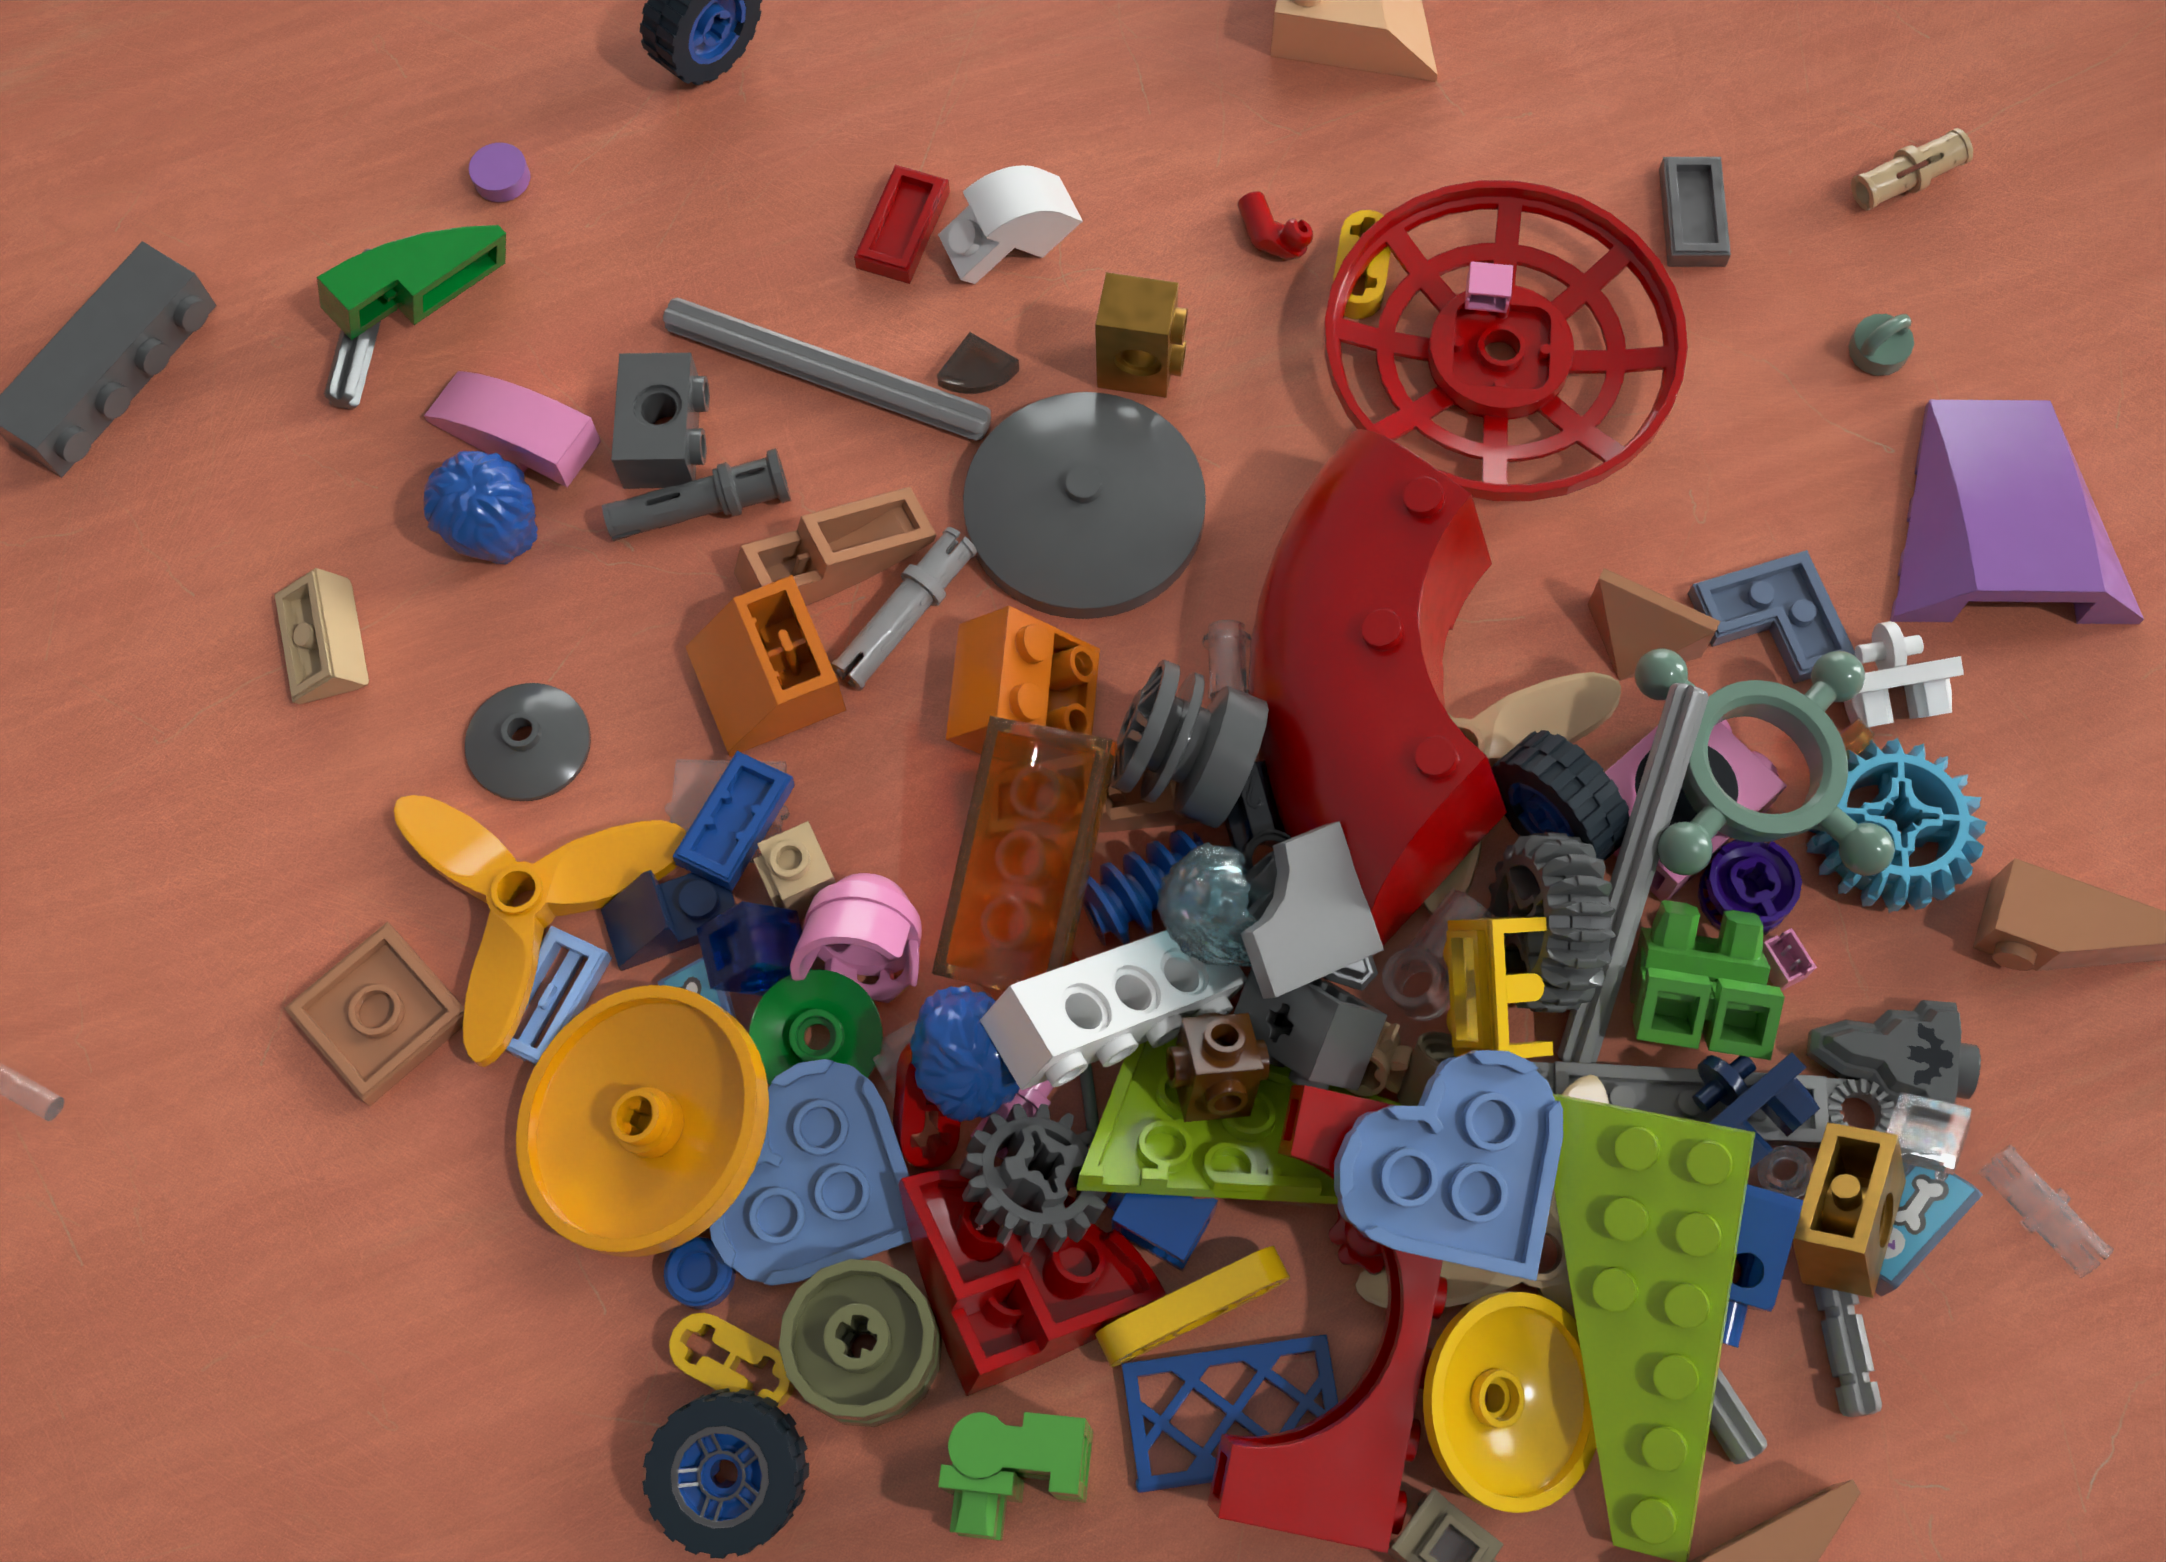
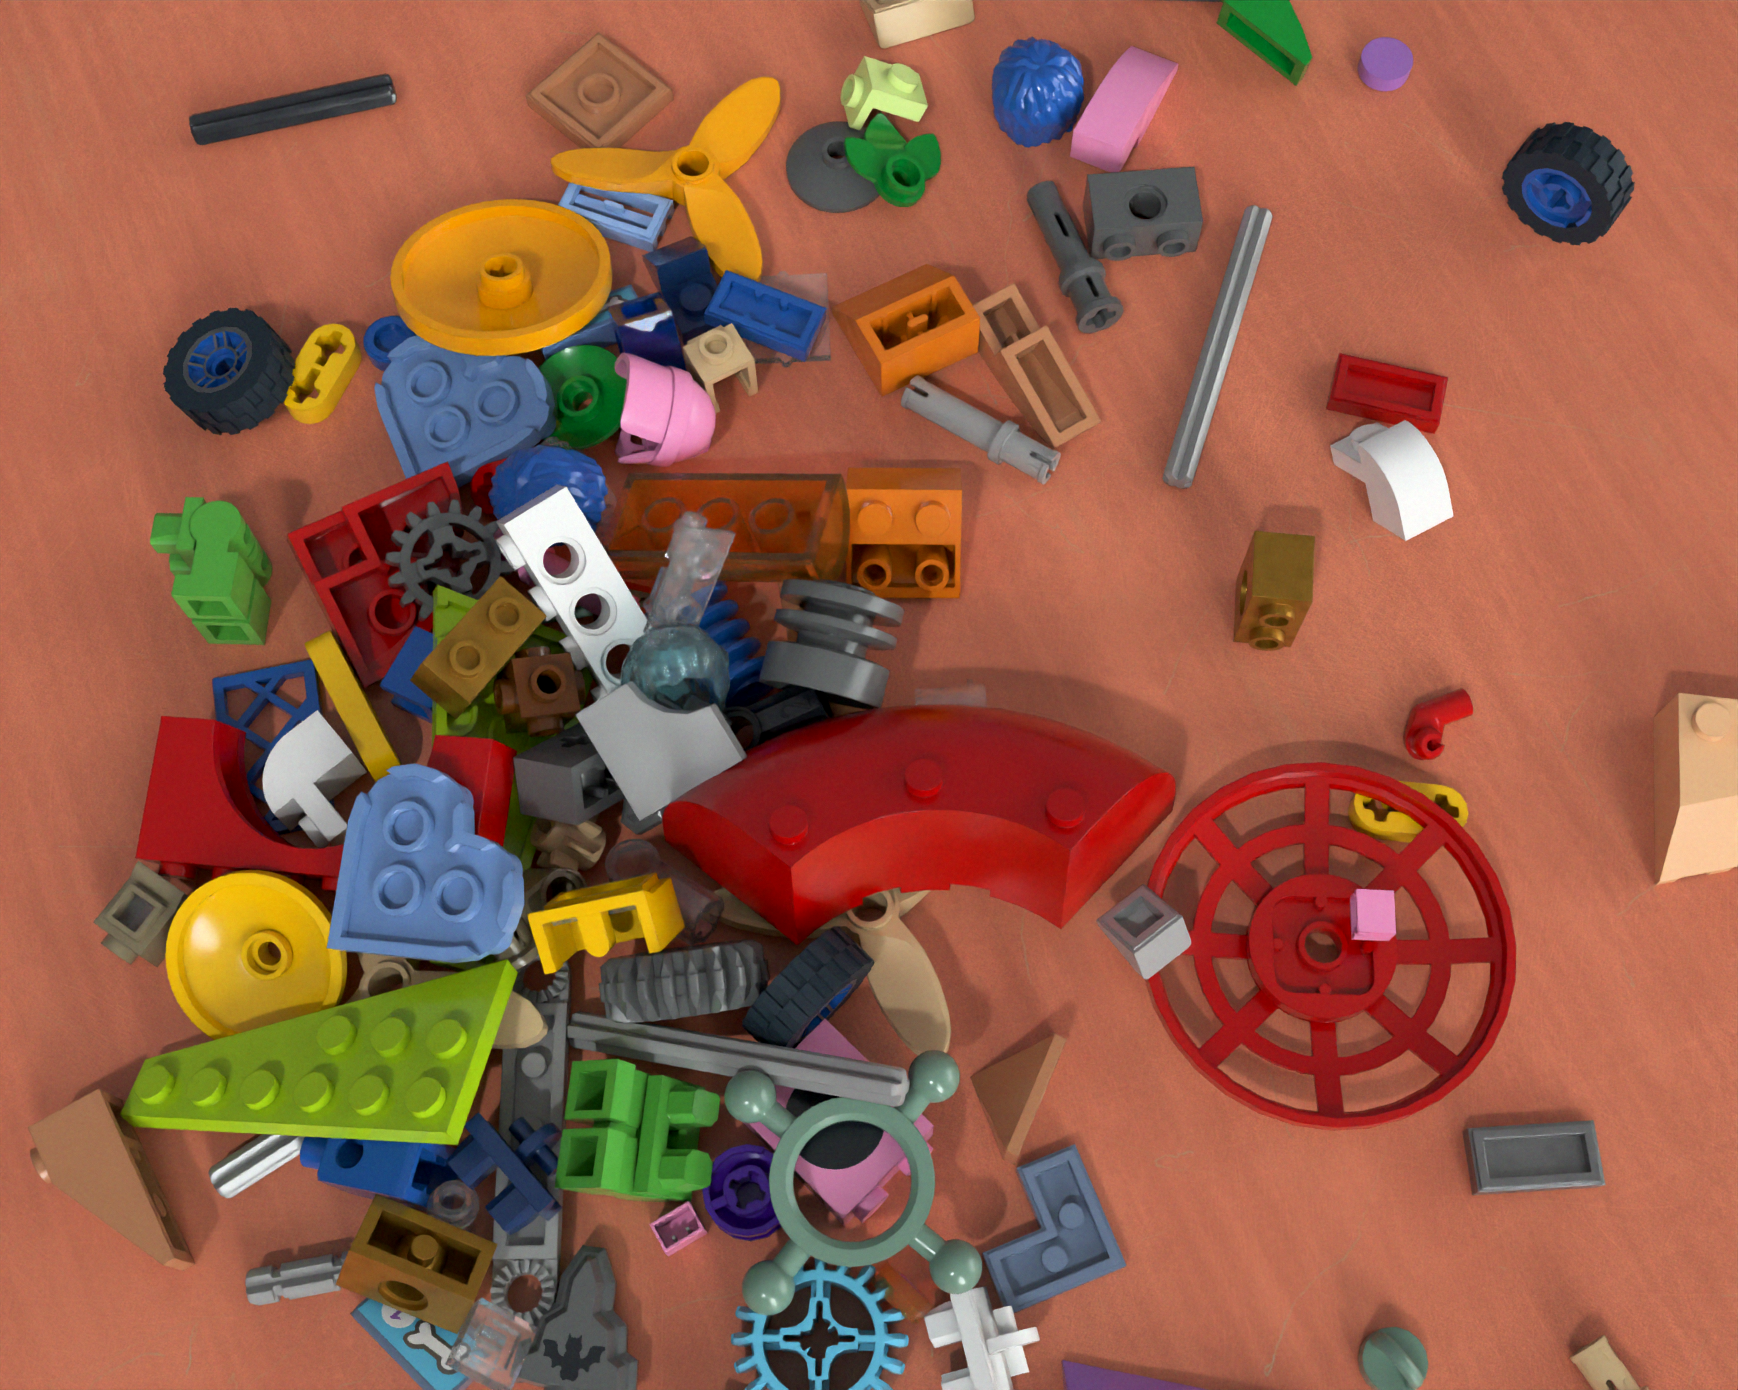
camera: 85 degrees right, 0 degrees up
(323, 1413) = (292, 109): none -> black axle
(443, 676) = (885, 88): none -> yellowish green bracket
(541, 673) = (892, 163): none -> green plate
(826, 1320) = (320, 449): olive wheel -> none
(977, 367) = (1239, 470): clear smoke tile -> none
(1084, 505) = (1106, 574): dark grey dish -> none
(1090, 867) = (693, 570): none -> clear hinge
(1170, 1121) = (477, 647): none -> pearl gold brick
(1285, 1357) = (305, 774): none -> white brick
(1499, 484) = (1145, 931): none -> light grey slope

